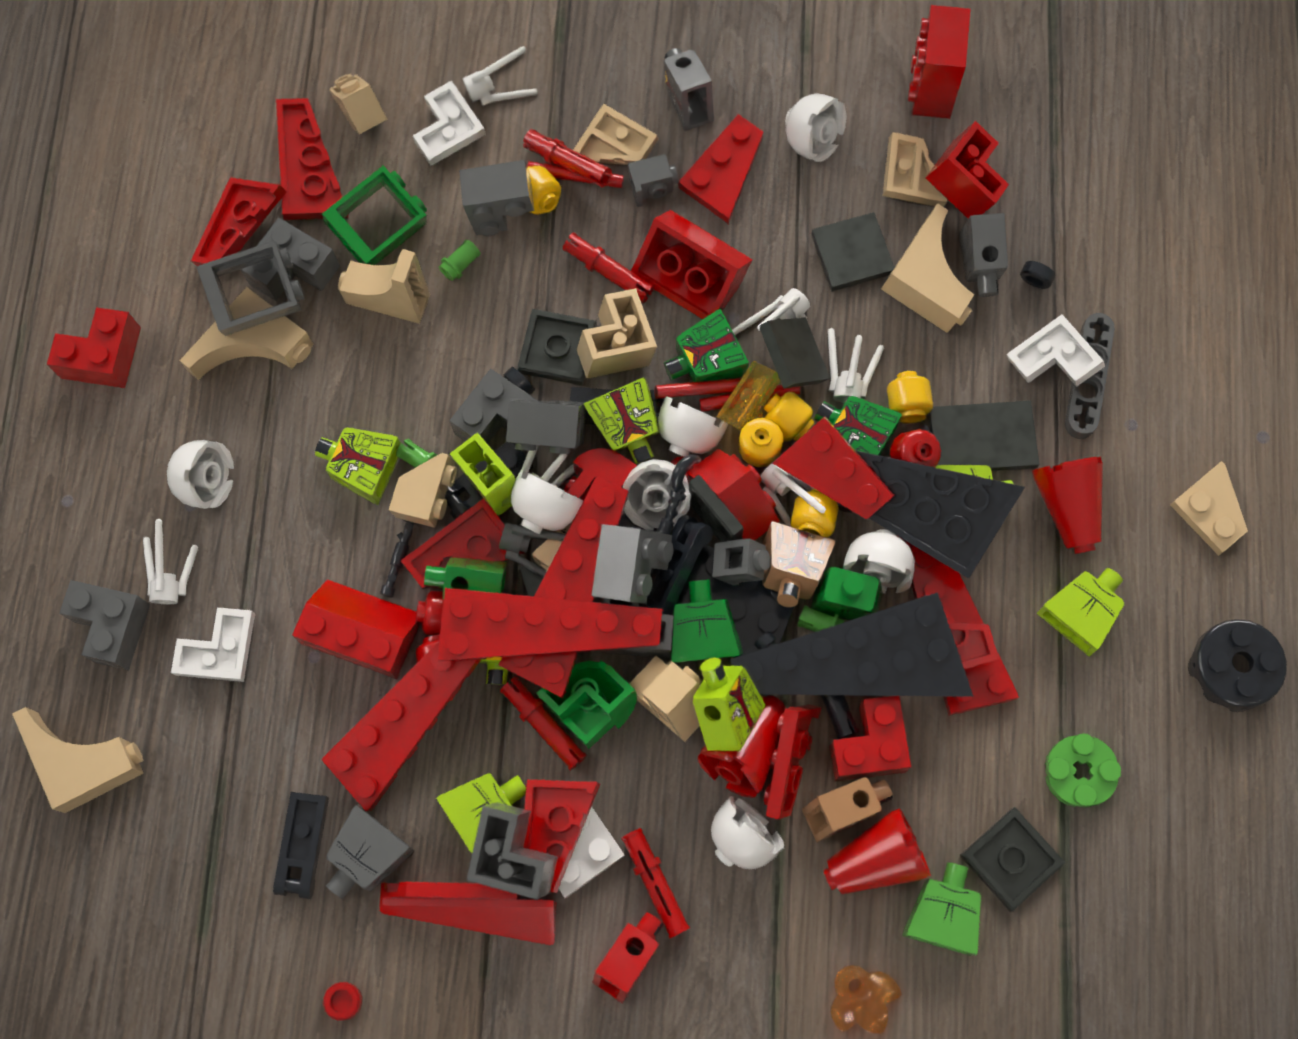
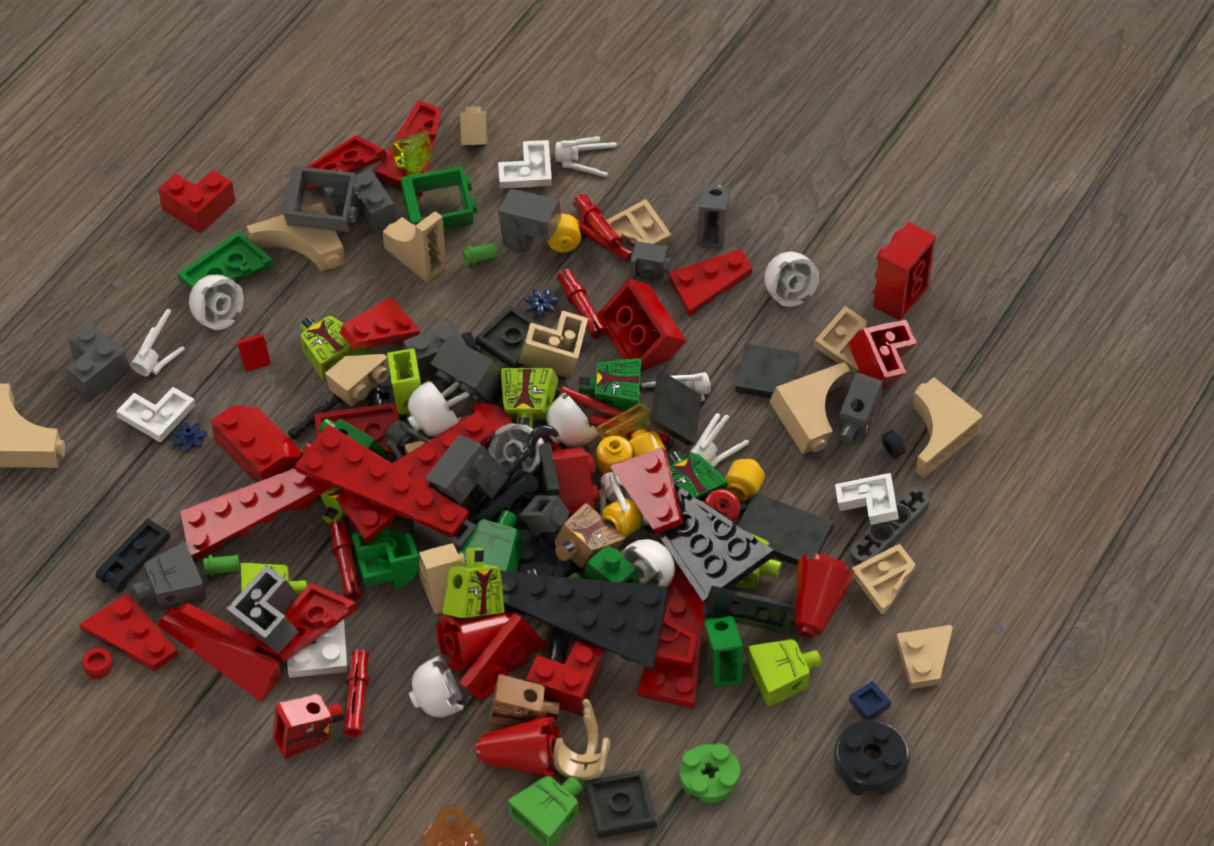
camera: 25 degrees right, 20 degrees down
(180, 415) = (232, 258): none -> green wing
(274, 659) = (189, 436): none -> dark blue plant
(282, 514) = (253, 352): none -> red slope
(314, 174) = (413, 152): none -> clear neon green slope
(357, 941) = (131, 631): none -> red wing
(407, 412) = (379, 326): none -> red wing
(408, 803) = (221, 565): none -> bright green pin
(562, 288) = (541, 302): none -> dark blue plant
(943, 848) = (573, 764): none -> tan helmet
(1015, 618) = (722, 636): none -> green torso
(1017, 560) = (749, 609): none -> black plate
(1076, 219) = (949, 424): none -> tan arch
(1122, 439) = (884, 576): none -> tan wing
(1194, 597) = (869, 701): none -> dark blue plate

